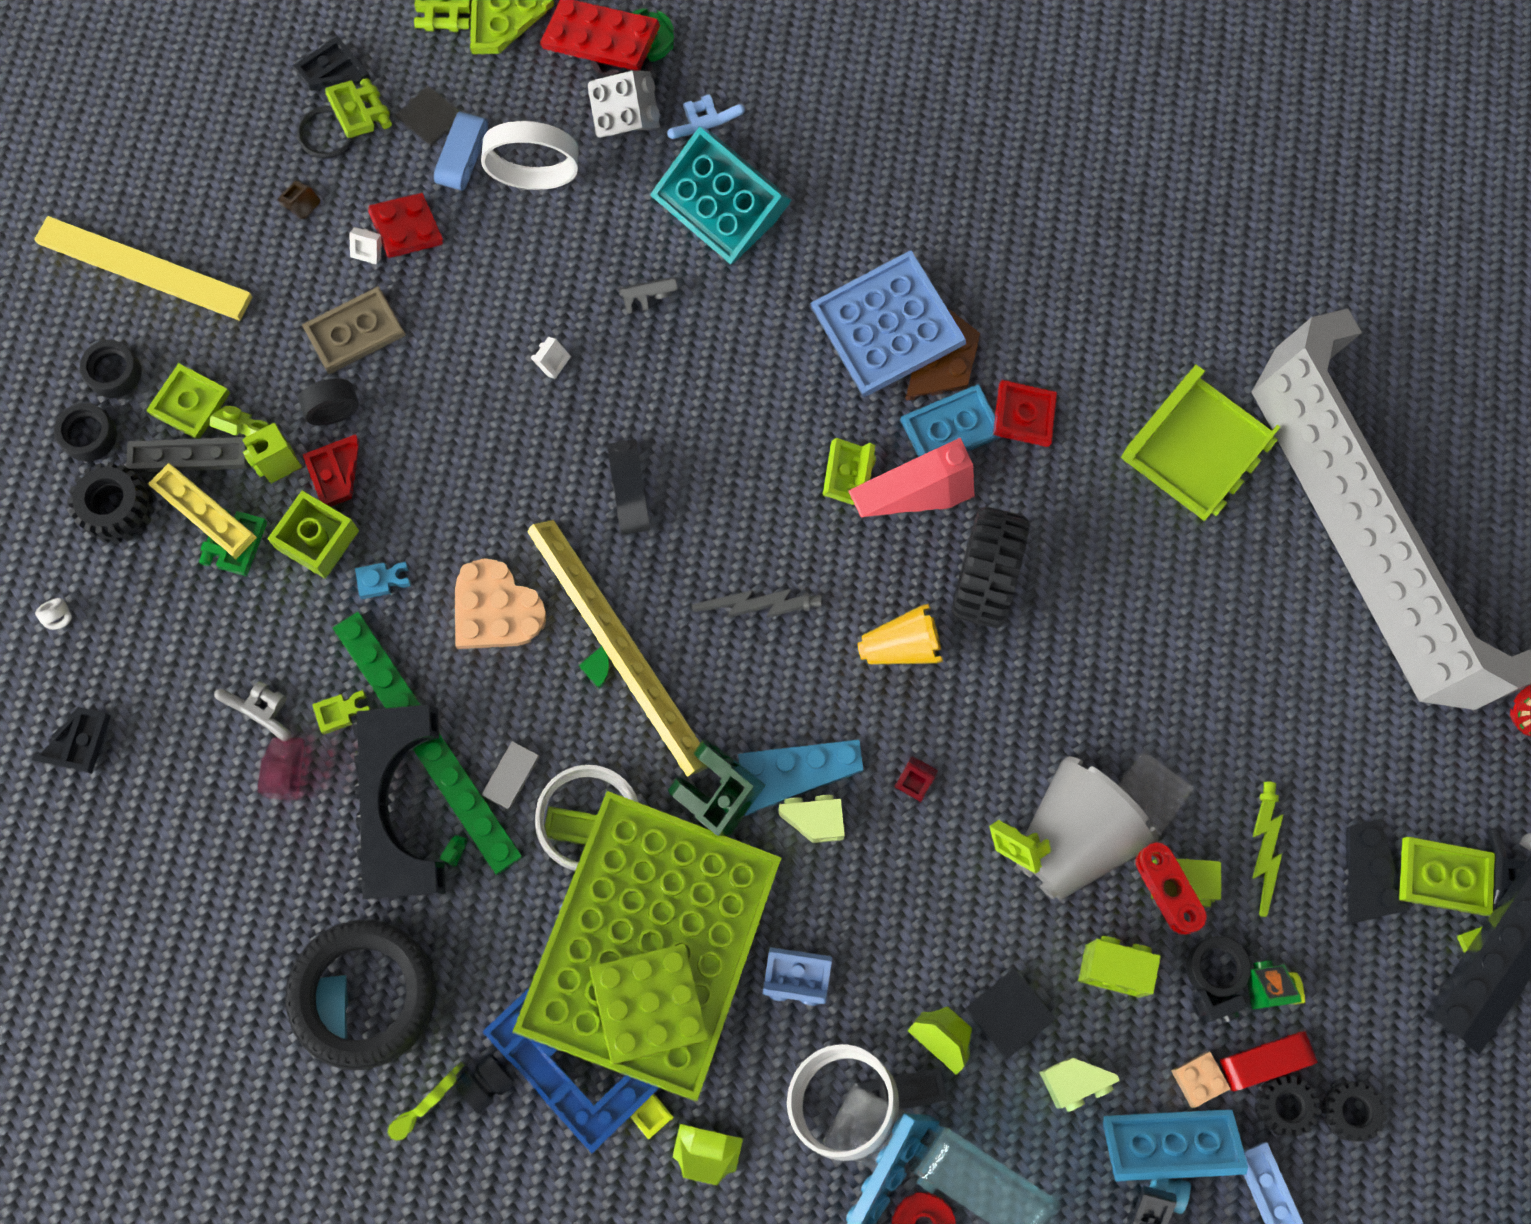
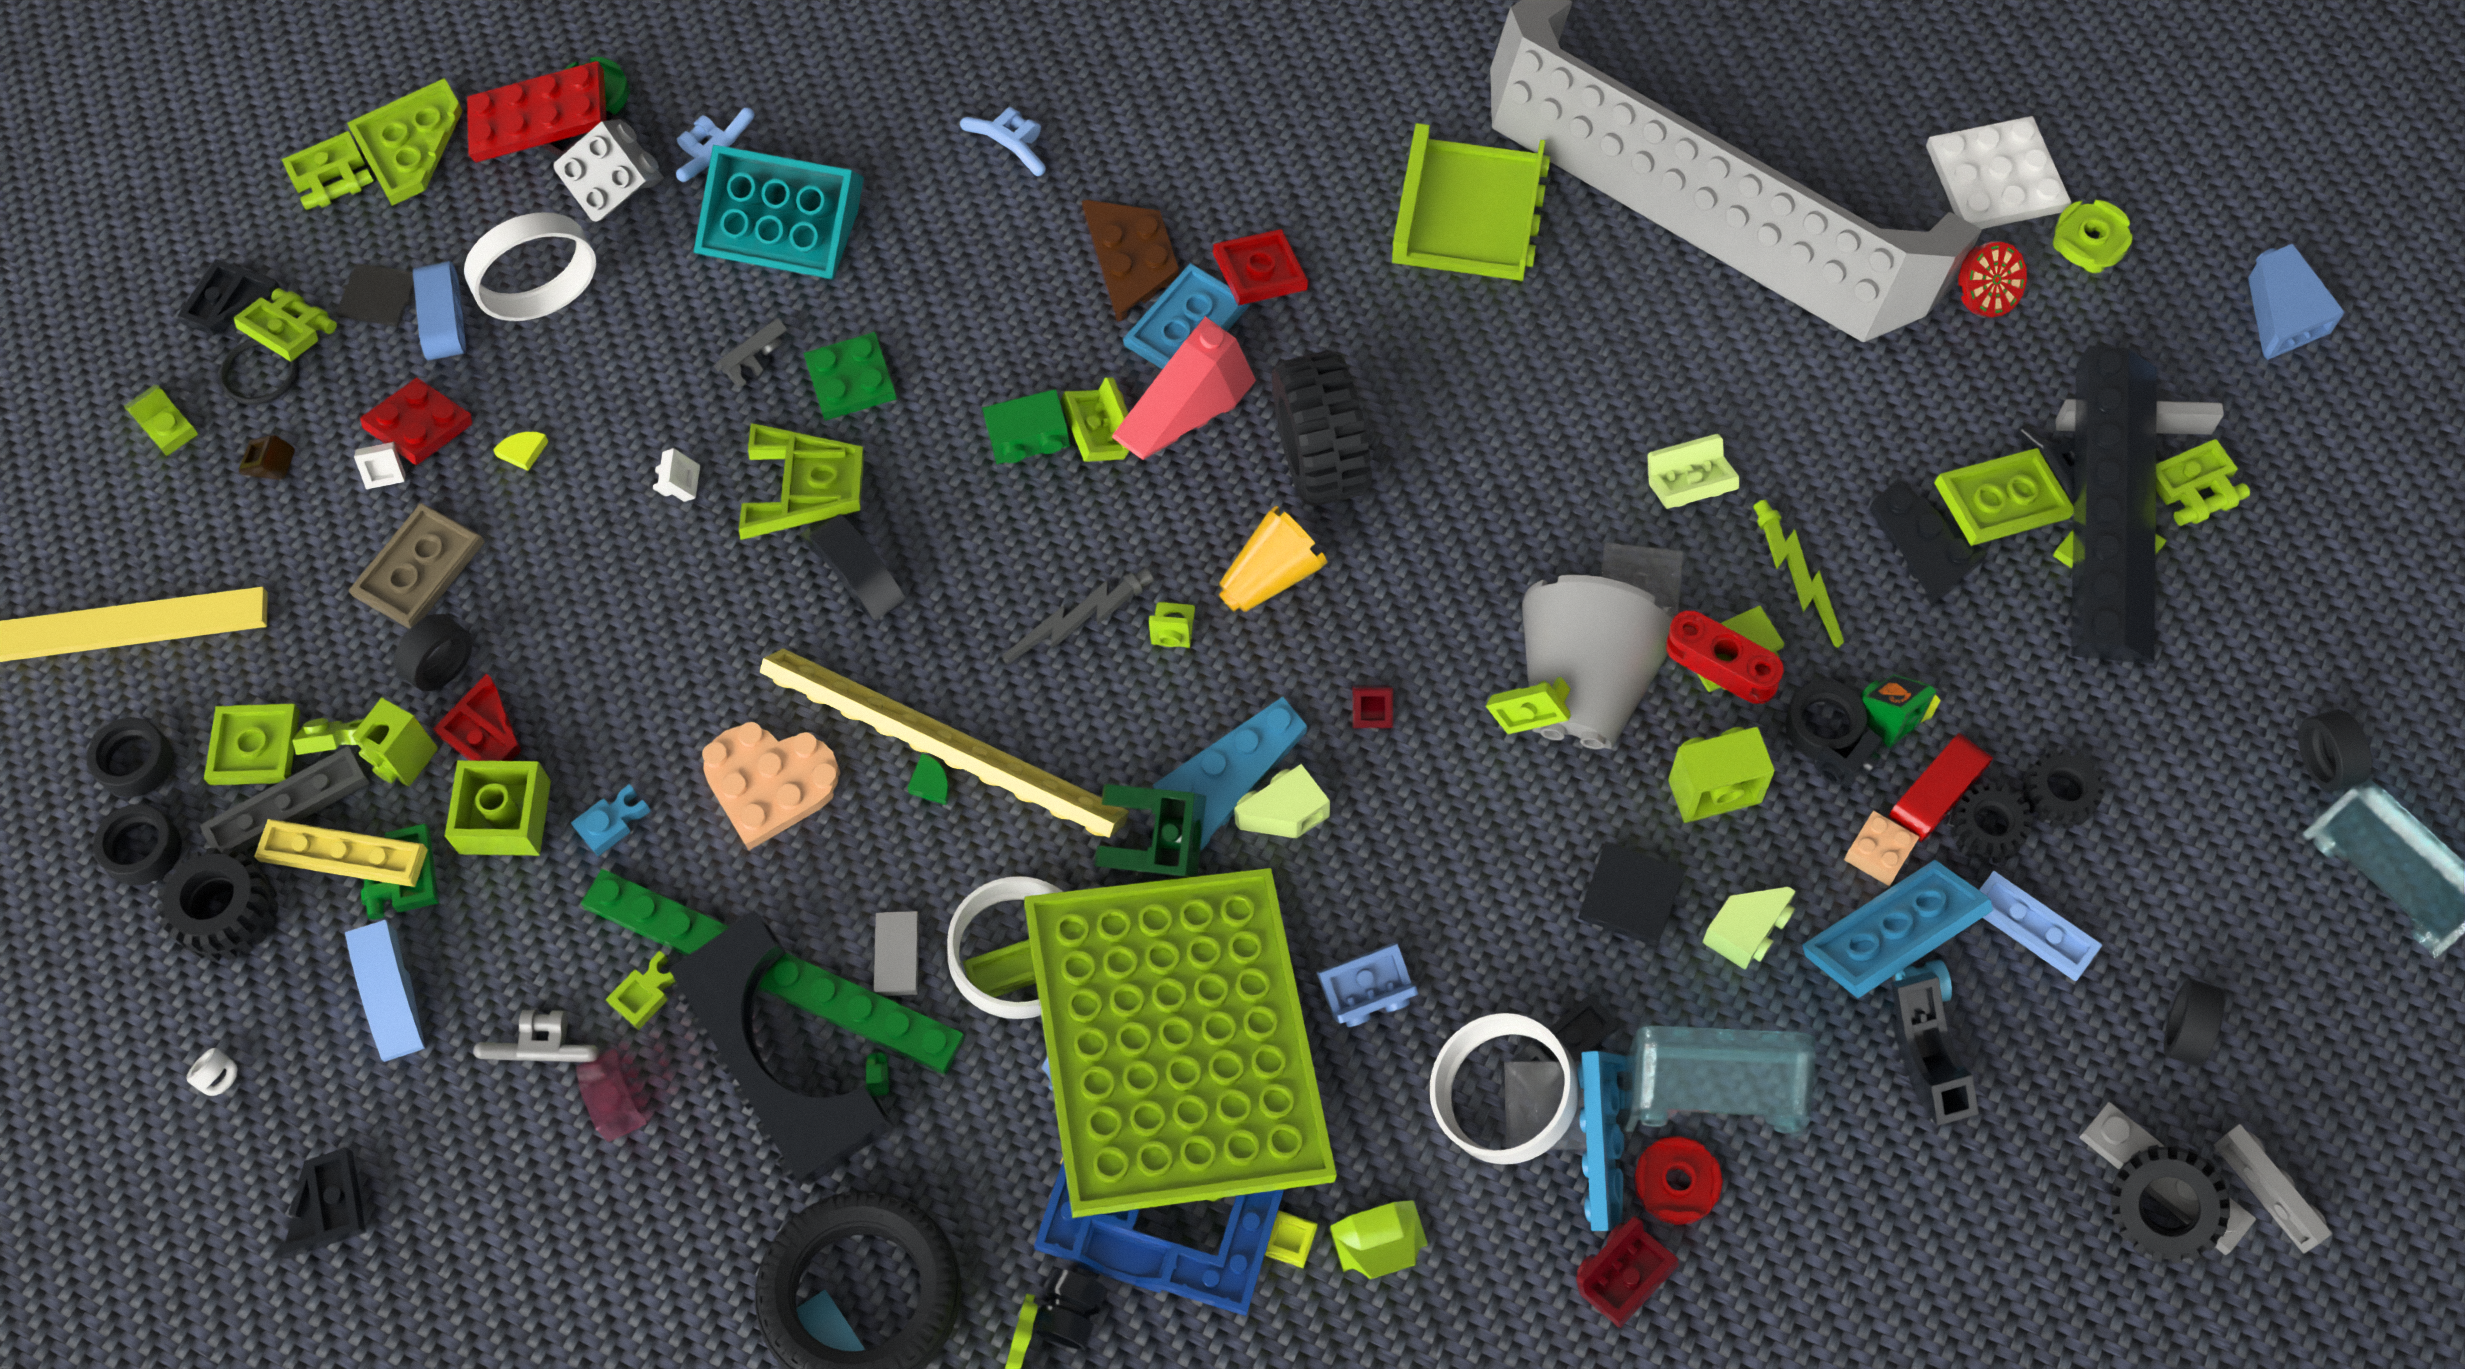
camera: 25 degrees left, 10 degrees down
(183, 619) = (385, 989): none -> light blue slope
(247, 134) = (161, 419): none -> lime slope
(463, 281) = (521, 448): none -> neon yellow tile
(638, 414) = (818, 480): none -> lime wing
(648, 1004) = (1214, 1098): lime plate -> none
(703, 344) = (850, 376): none -> green plate
(798, 448) = (1026, 427): none -> green brick
(811, 654) = (1172, 630): none -> lime bracket
(888, 323) = (1050, 248): medium blue plate -> none
(910, 227) = (1002, 131): none -> light blue piece
(944, 1036) = (1574, 958): lime slope -> none
(1234, 734) = (1691, 471): none -> yellowish green bracket

